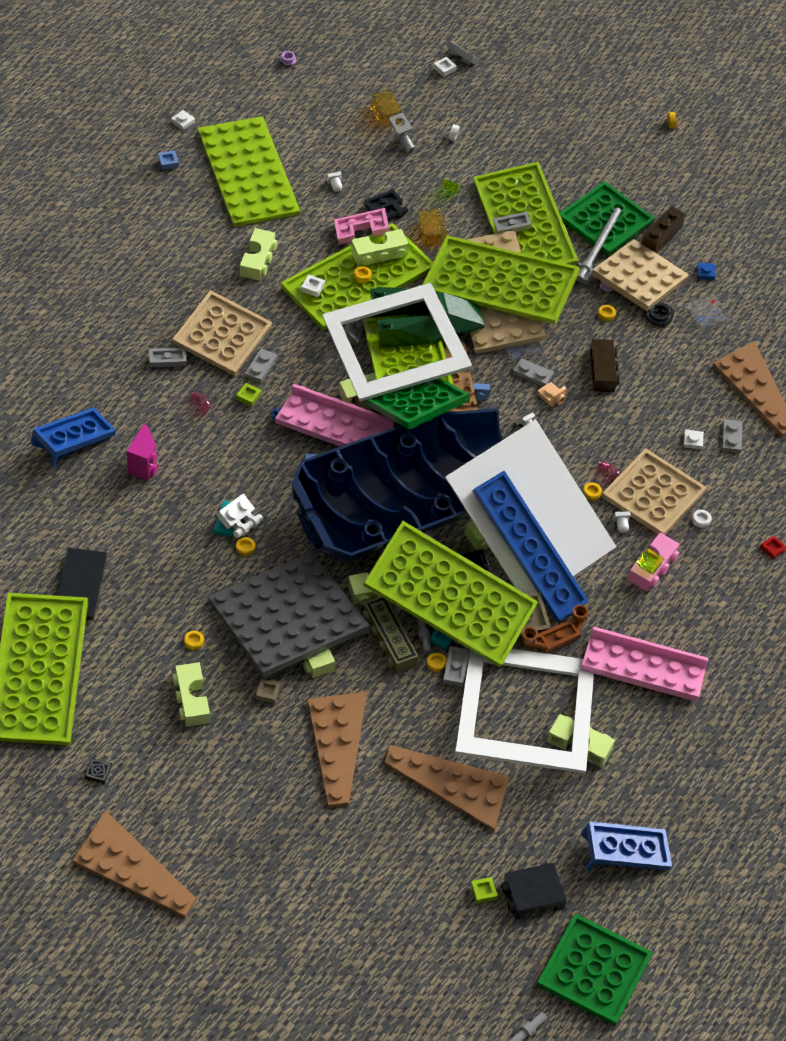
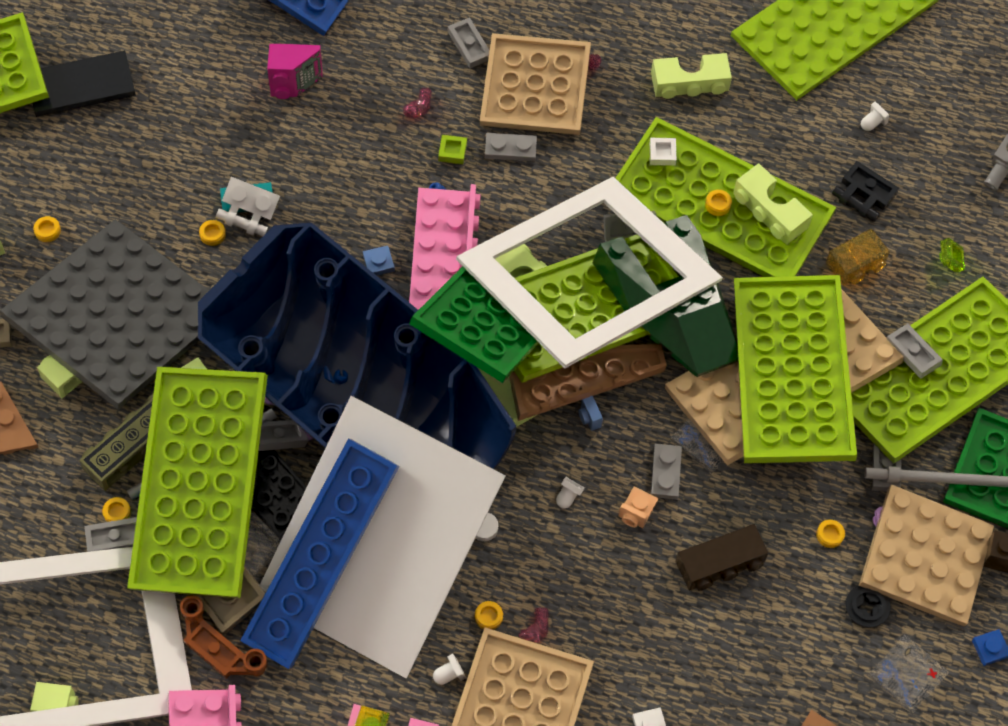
camera: 70 degrees right, 10 degrees up
(347, 225) = (821, 179): bright pink plate -> none

